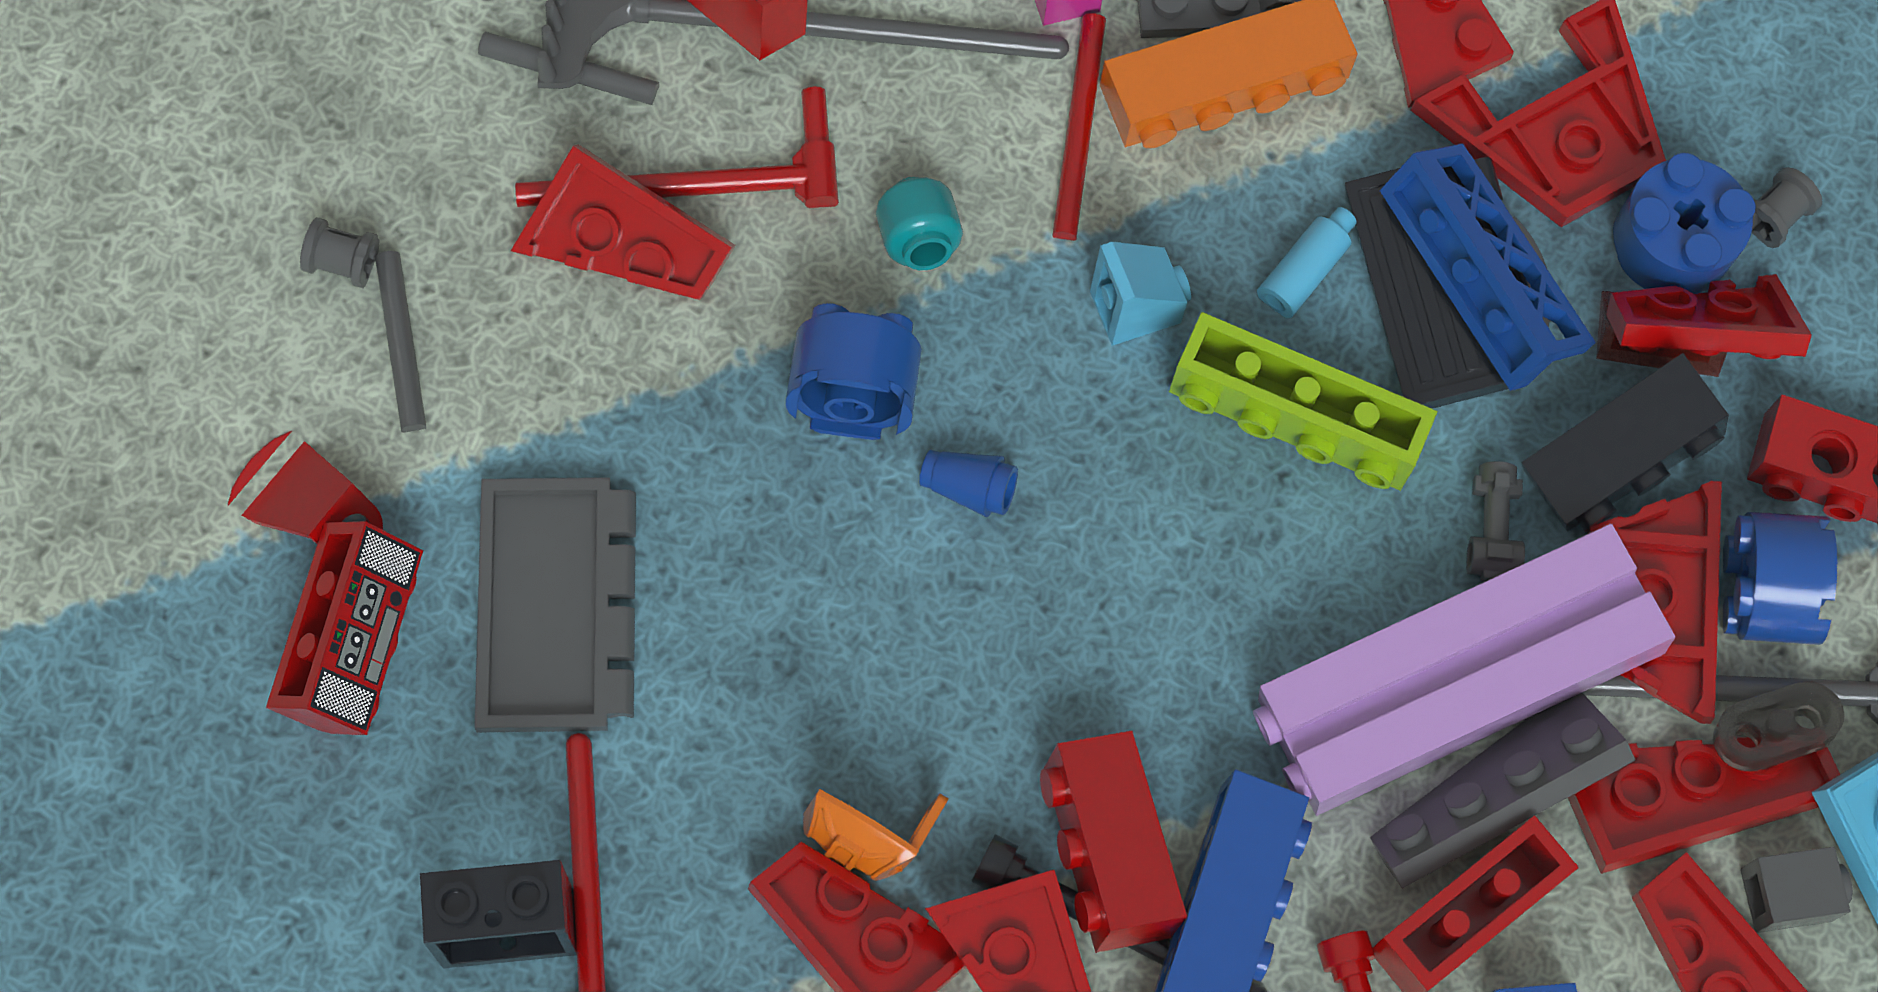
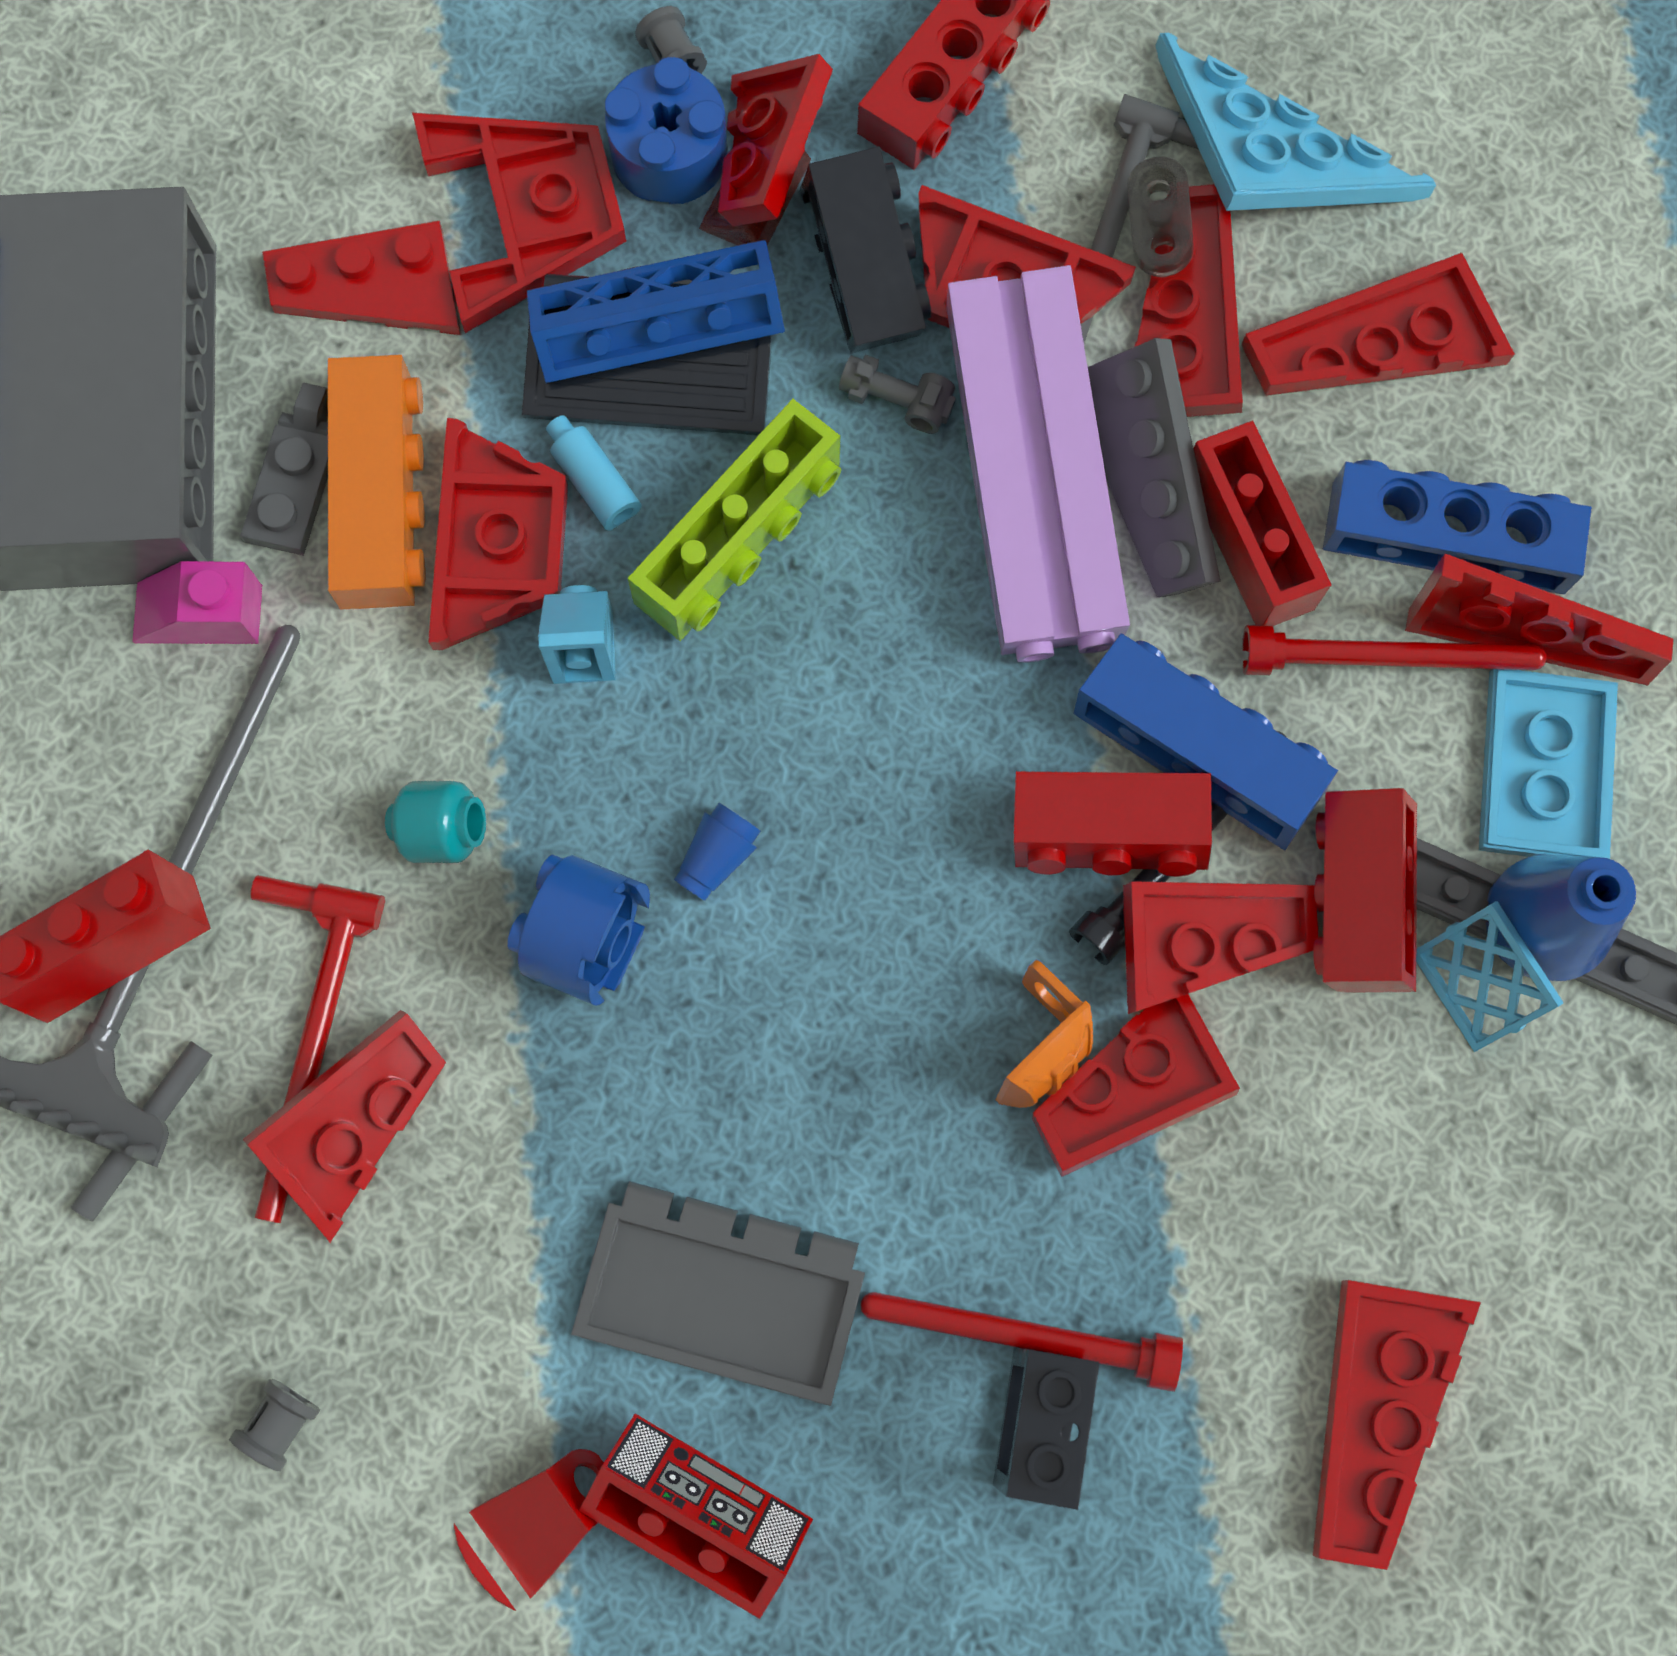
camera: 70 degrees left, 5 degrees up
(400, 341) = (391, 1383): dark grey bar -> none
(1079, 127) = (379, 640): red bar -> none
(1213, 194) = (494, 537): none -> red wing
(1781, 577) = (1027, 164): blue brick -> none
(1797, 889) = (1301, 257): dark grey brick -> none

